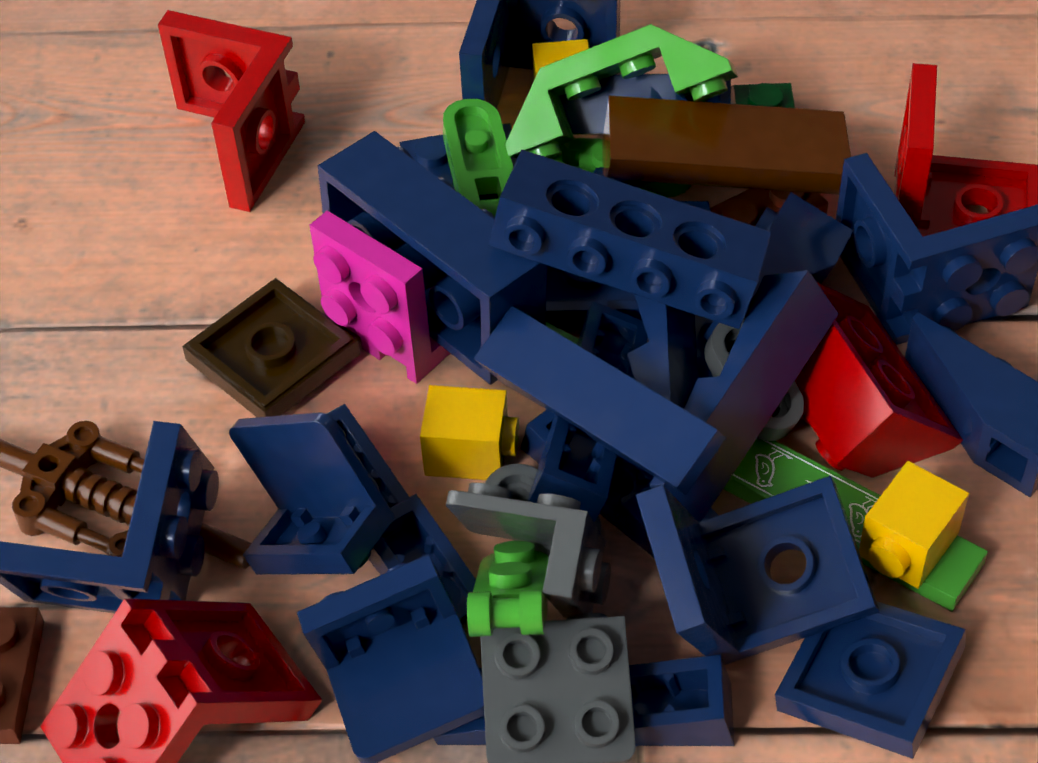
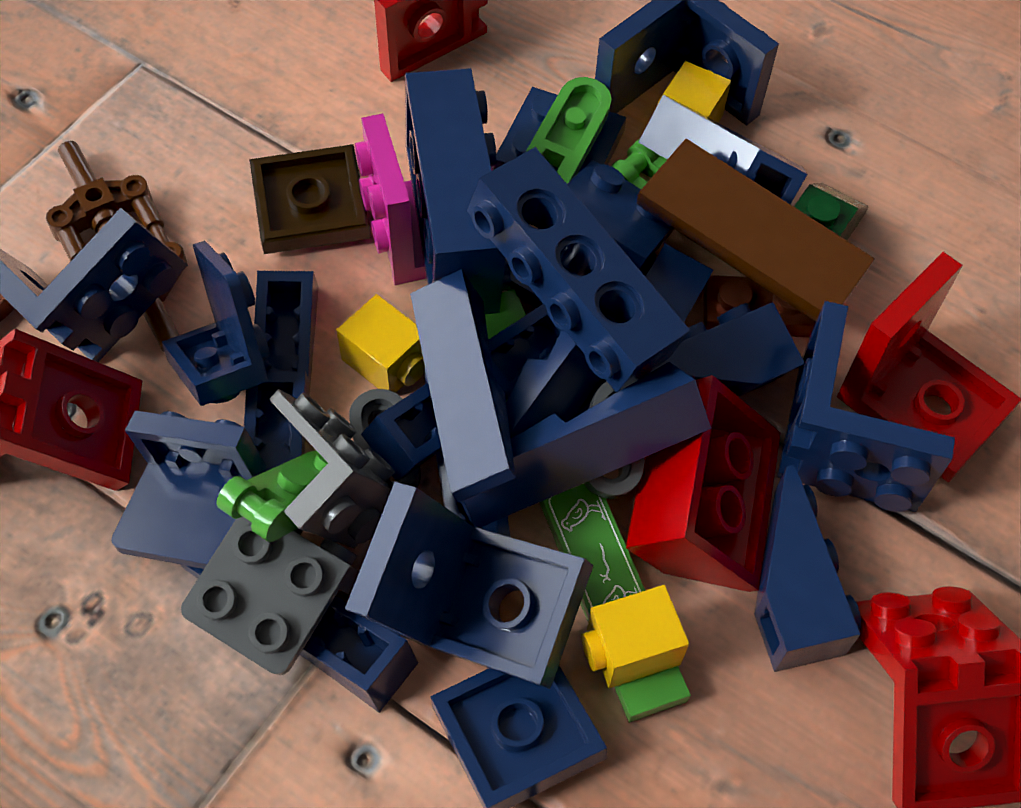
camera: 30 degrees right, 10 degrees up
(542, 119) = (637, 123): bright green slope -> none

